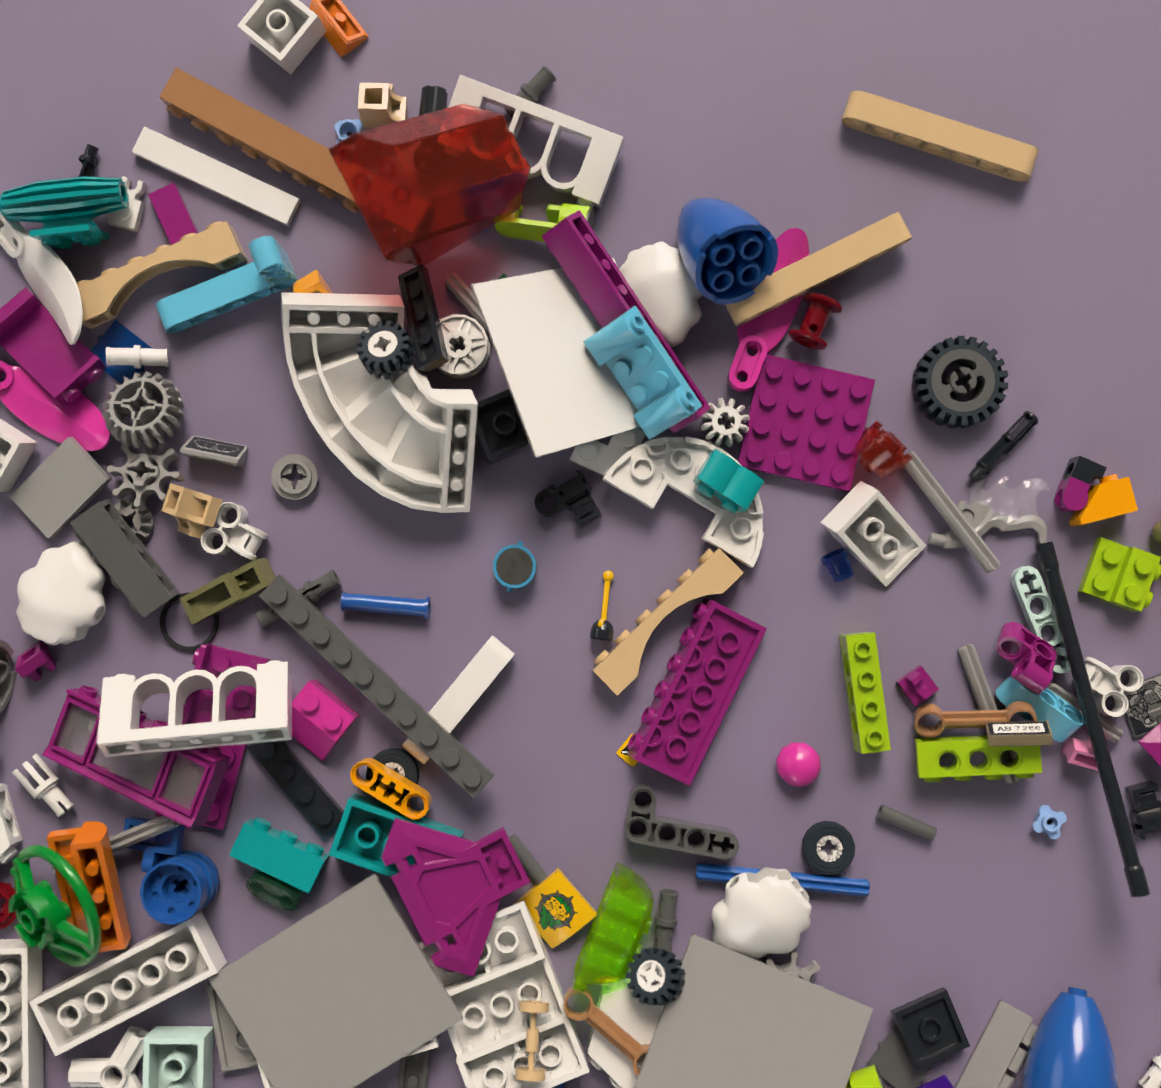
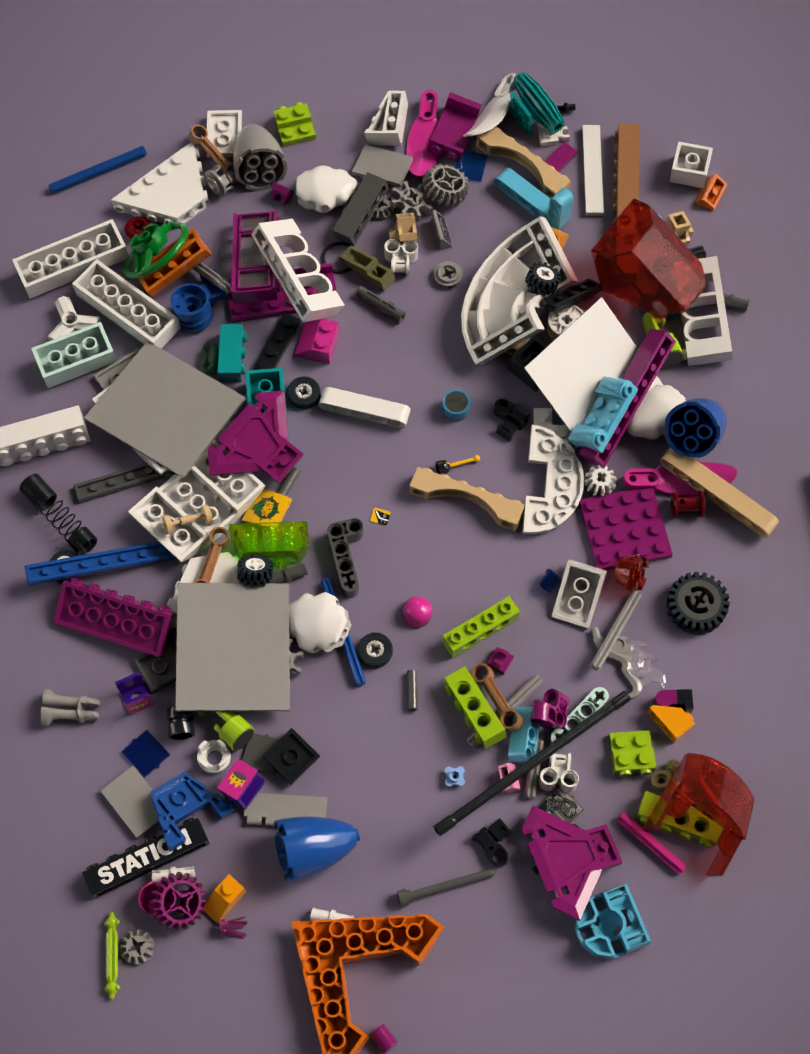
camera: 70 degrees right, 20 degrees down
(47, 789) = (215, 224): white arm -> none
(137, 356) = (473, 171): white pin -> none
(377, 686) = (351, 360): dark grey plate -> none
(380, 792) = (292, 397): light orange beam -> none
(386, 604) = (401, 352): blue pin -> none
(696, 691) = (433, 532): magenta bracket -> none
(728, 482) = (566, 491): teal brick -> none
(1003, 445) = (674, 647): black piece -> none
(1018, 733) = (500, 715): tile -> none

